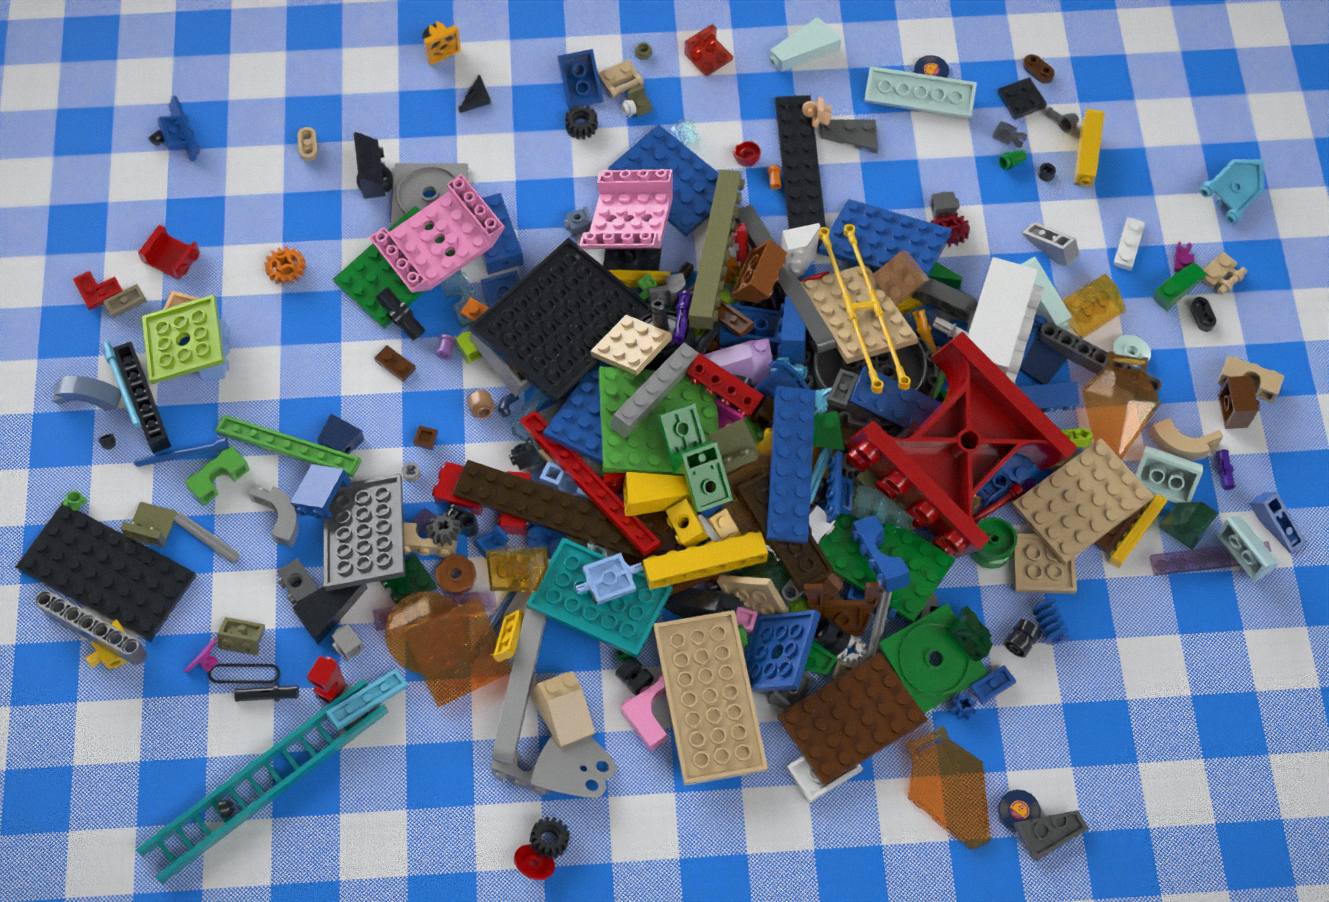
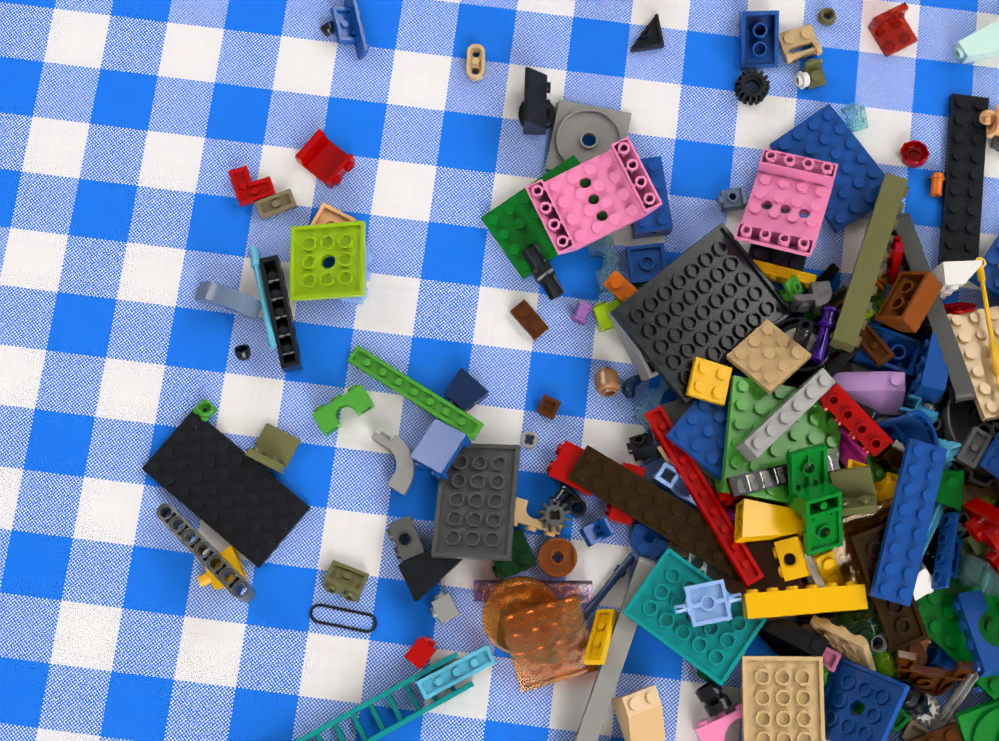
camera: 10 degrees right, 15 degrees up
(204, 658) = (307, 597): dark pink piece -> none
(206, 537) = (325, 471): light grey axle -> none
(217, 446) = (349, 377): blue piece -> none
(267, 693) = (371, 646): black pin -> none
(285, 265) = (430, 189): orange gear -> none
(422, 520) = (536, 495): clear purple plate -> none
(516, 568) = (618, 569): clear yellow slope -> none
(576, 377) = (709, 381): none -> yellow plate
(647, 448) = (768, 478): none -> tile

